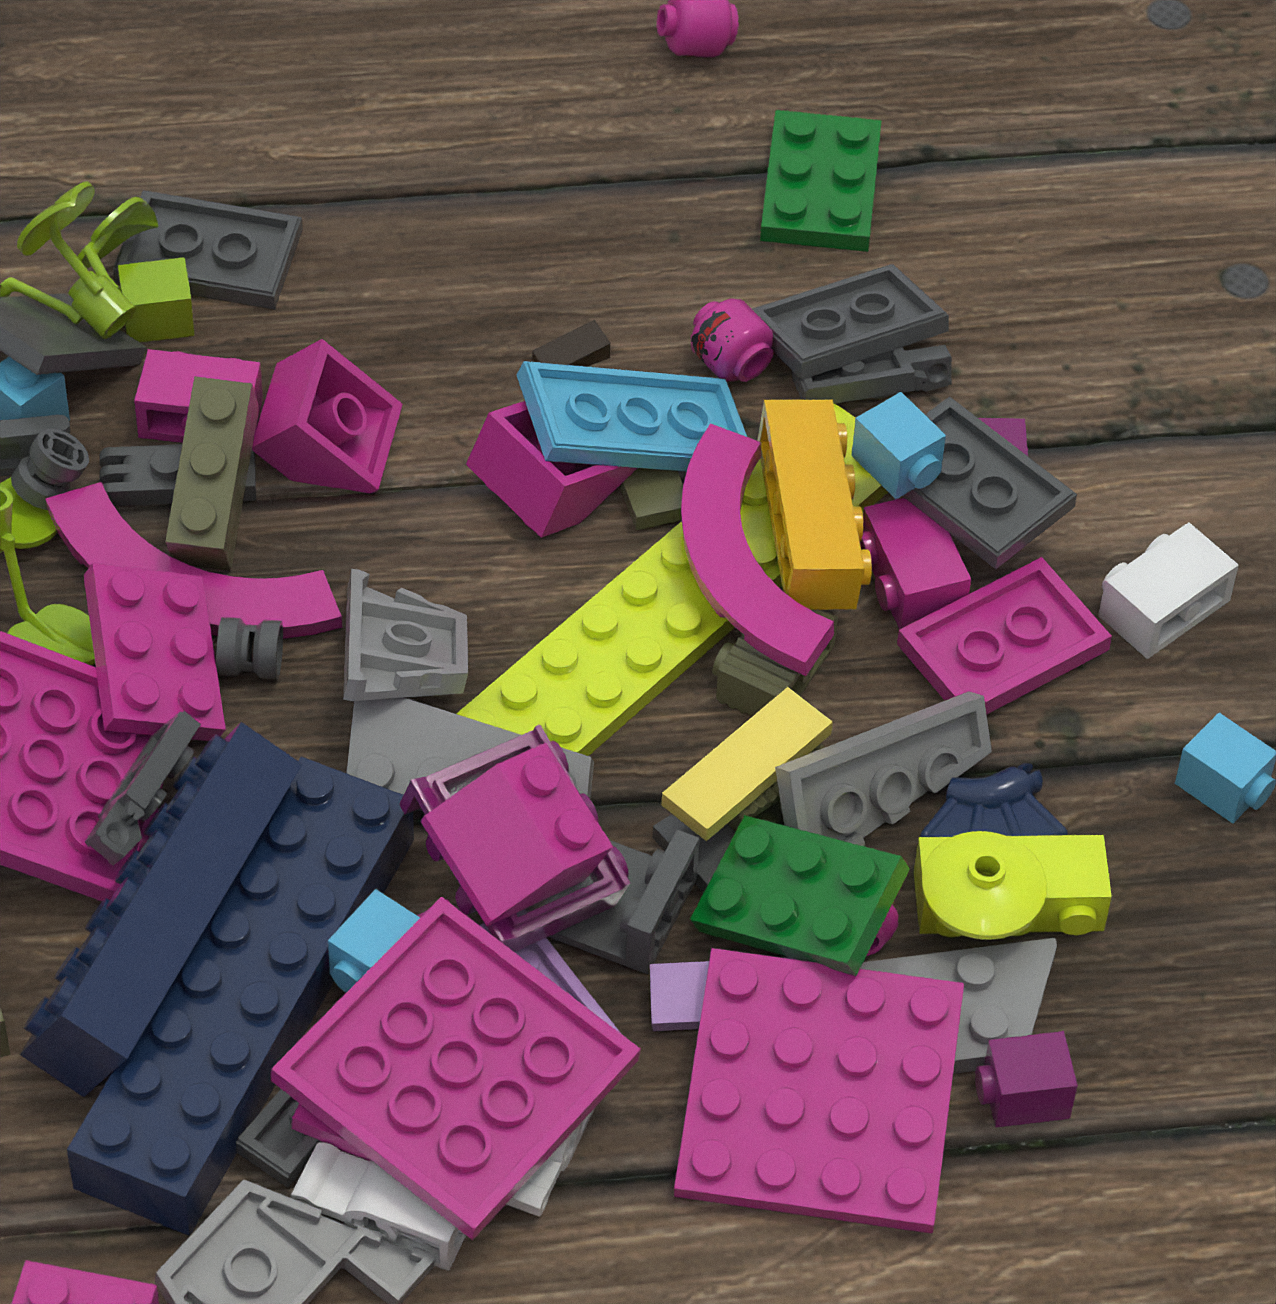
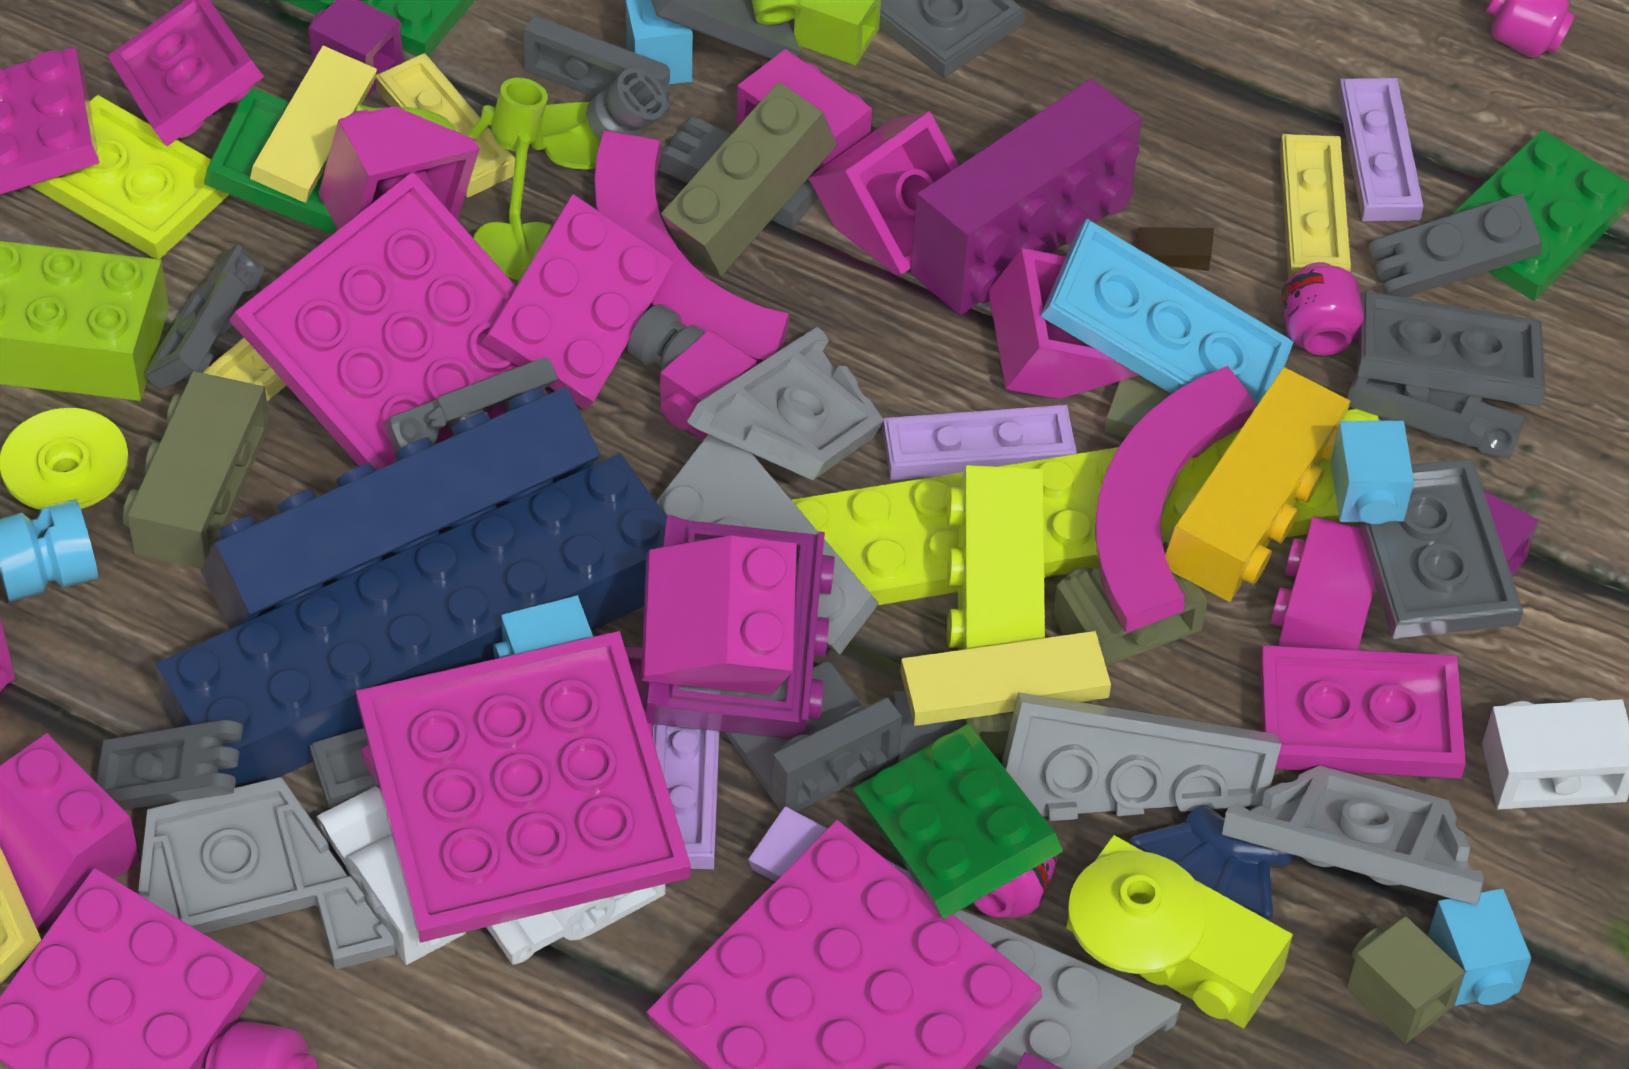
camera: 35 degrees right, 0 degrees up
(149, 1222) = (170, 764): none -> dark grey hinge
(308, 665) = (697, 375): none -> dark pink brick
(444, 371) = (1025, 194): none -> magenta brick
(548, 593) = (949, 441): none -> lavender tile
(650, 261) = (1314, 201): none -> light yellow tile
(663, 189) = (1380, 149): none -> lavender tile
(663, 677) = (996, 557): none -> neon yellow brick
(791, 237) = (1456, 247): none -> dark grey hinge
(1087, 726) = (1365, 829): none -> light grey wing
(1193, 822) = (1404, 978): none -> olive brick

